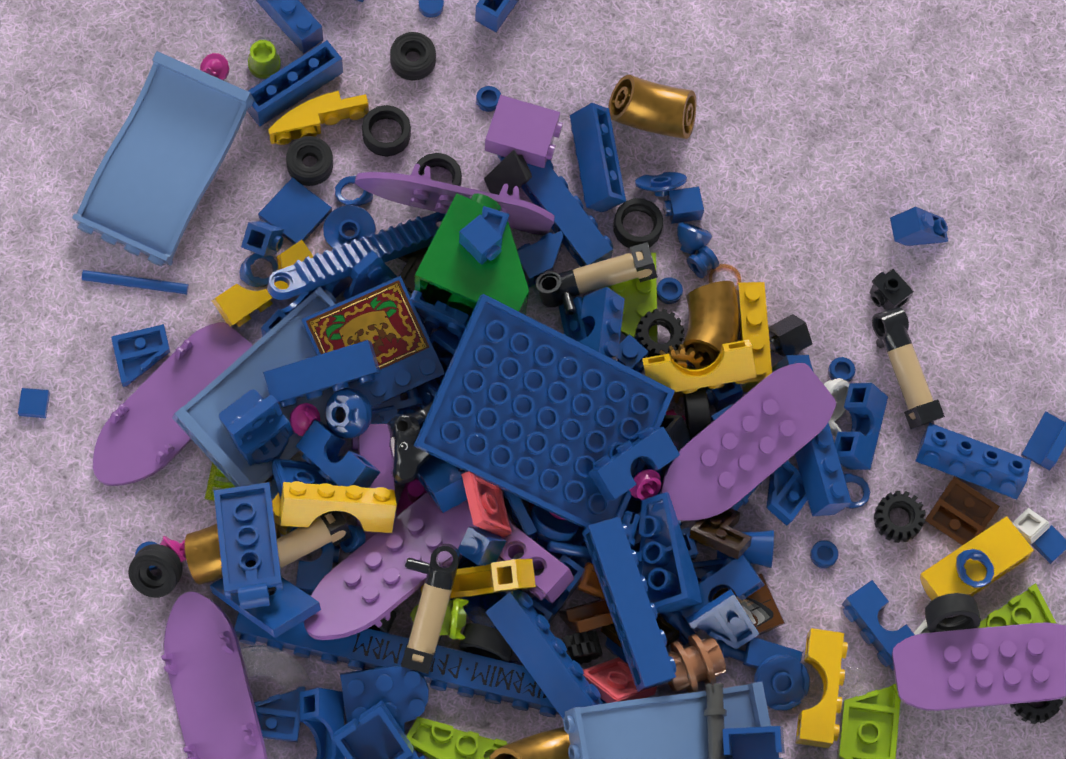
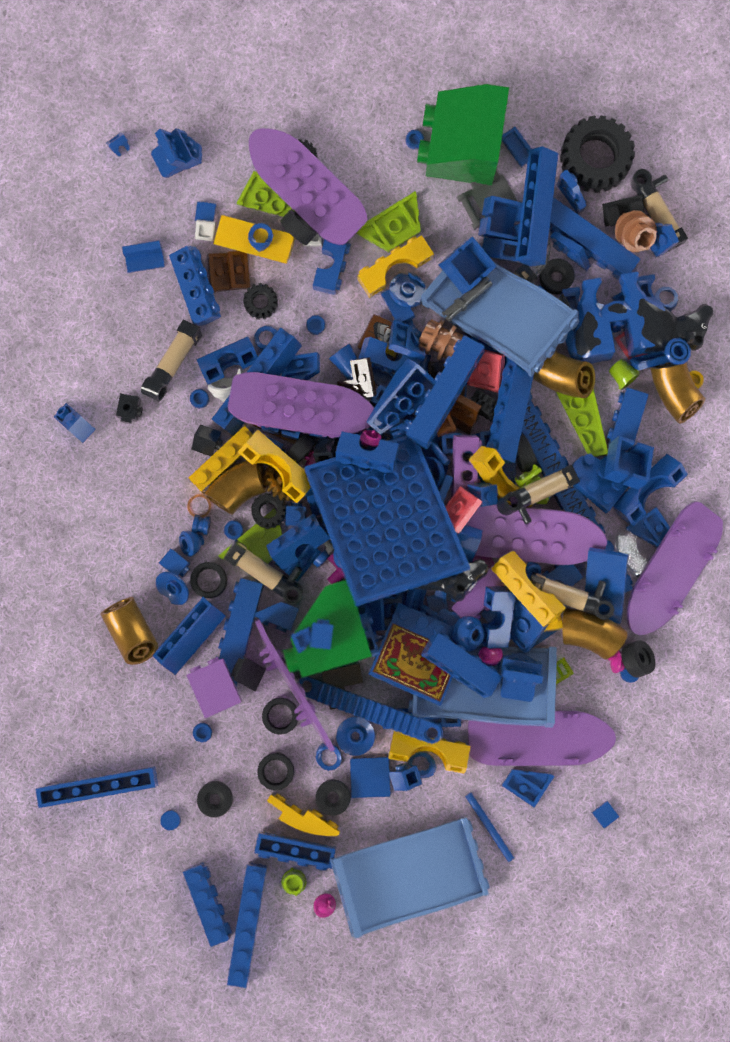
camera: 125 degrees left, 15 degrees up
(248, 534) = (587, 620): blue hinge -> none
(368, 274) = (380, 694): blue plate -> none

